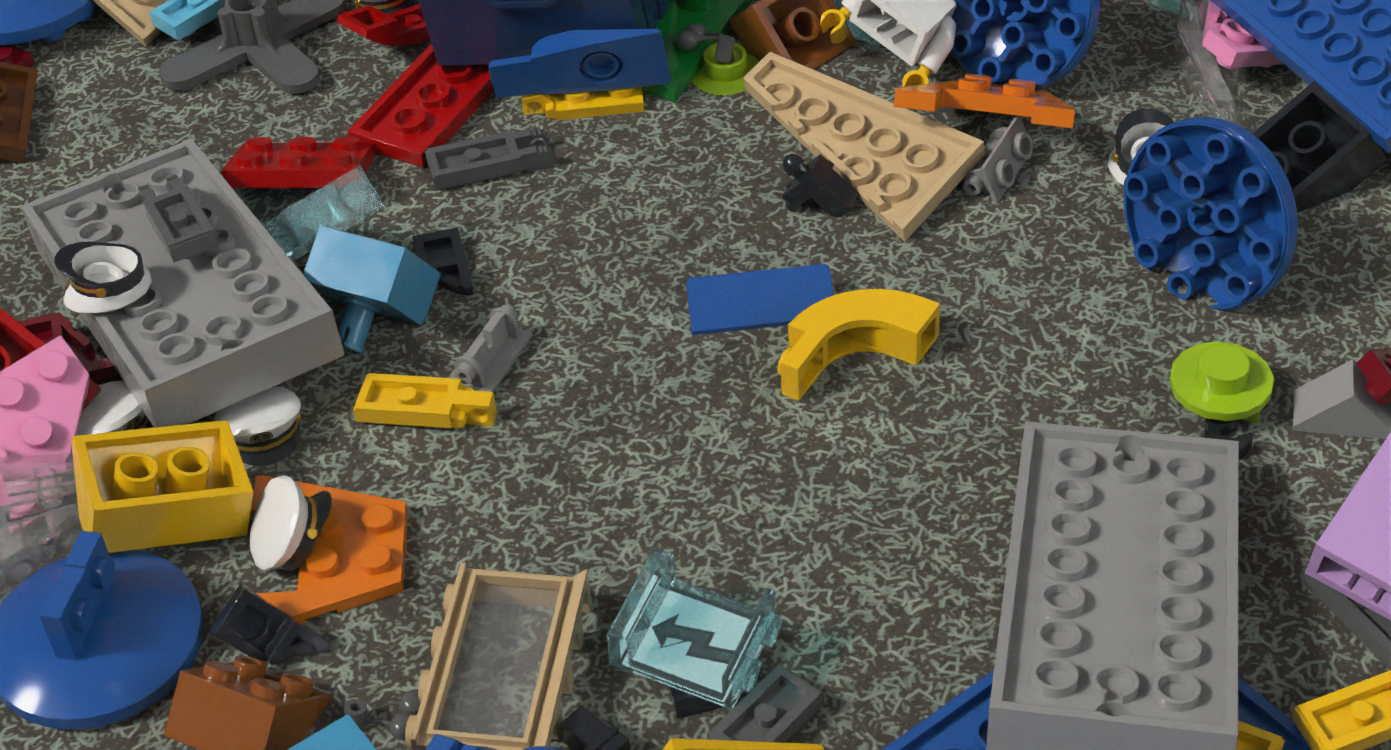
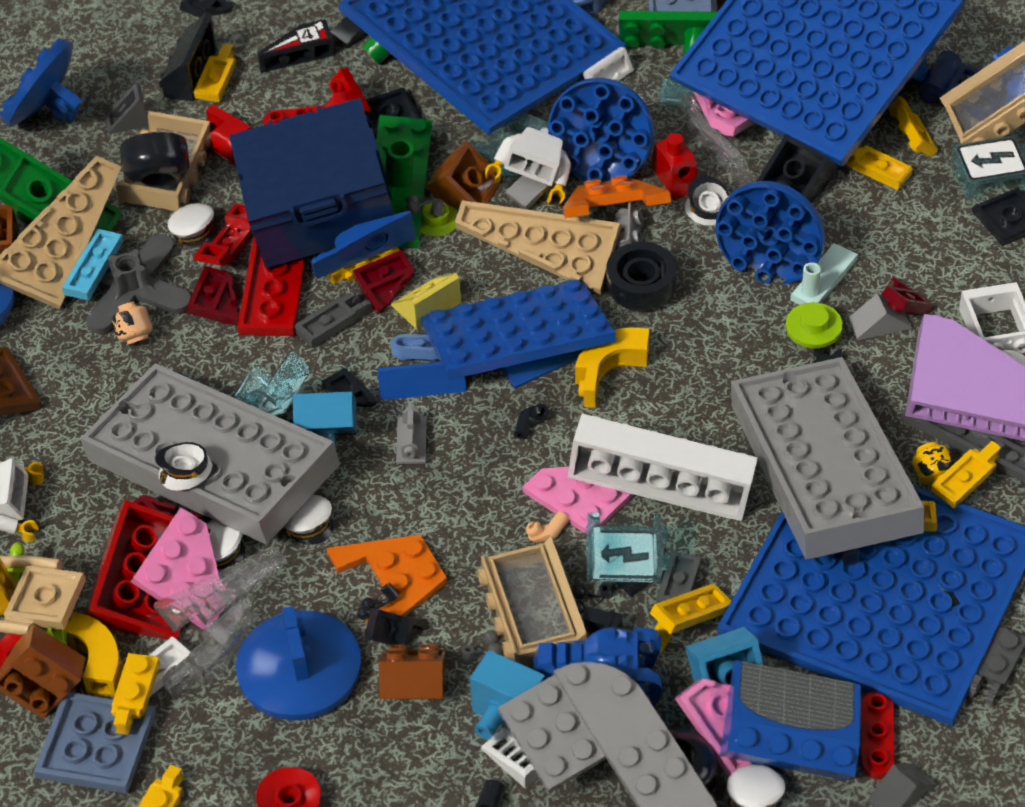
camera: 25 degrees left, 5 degrees up
(162, 485) = (290, 571): yellow slope -> none
(178, 220) = (198, 416): dark grey hinge -> none
(210, 83) = (132, 323): none -> light nougat head
(265, 581) = (368, 603): none -> black piece
(286, 524) = (368, 568): white piece -> none
(296, 163) = (224, 357): red plate -> none
(346, 82) = (214, 297): none -> dark red wing
(423, 402) = (392, 476): yellow hinge -> none
(556, 277) = (417, 381): none -> blue slope
(583, 232) = (413, 347): none -> medium blue plate
(595, 127) = (384, 279): none -> dark red wing
(596, 678) = (579, 592): none -> black piece
(604, 565) = (540, 533): none -> light nougat arm
(640, 173) = (436, 294): none -> light yellow slope
(682, 383) = (529, 418): none -> black arm
(707, 521) = (574, 497): none -> bright pink plate
(735, 245) = (517, 328): none -> blue plate
(818, 182) = (537, 275): black piece -> none
(831, 520) = (661, 467): none -> white brick
(875, 66) = (527, 191): none -> light grey slope
(974, 226) = (641, 261): none -> black piece
(1117, 66) = (674, 158): none -> red torso
(1270, 321) = (823, 277): none -> light aqua piece
(1319, 666) = (931, 462): none -> yellow head

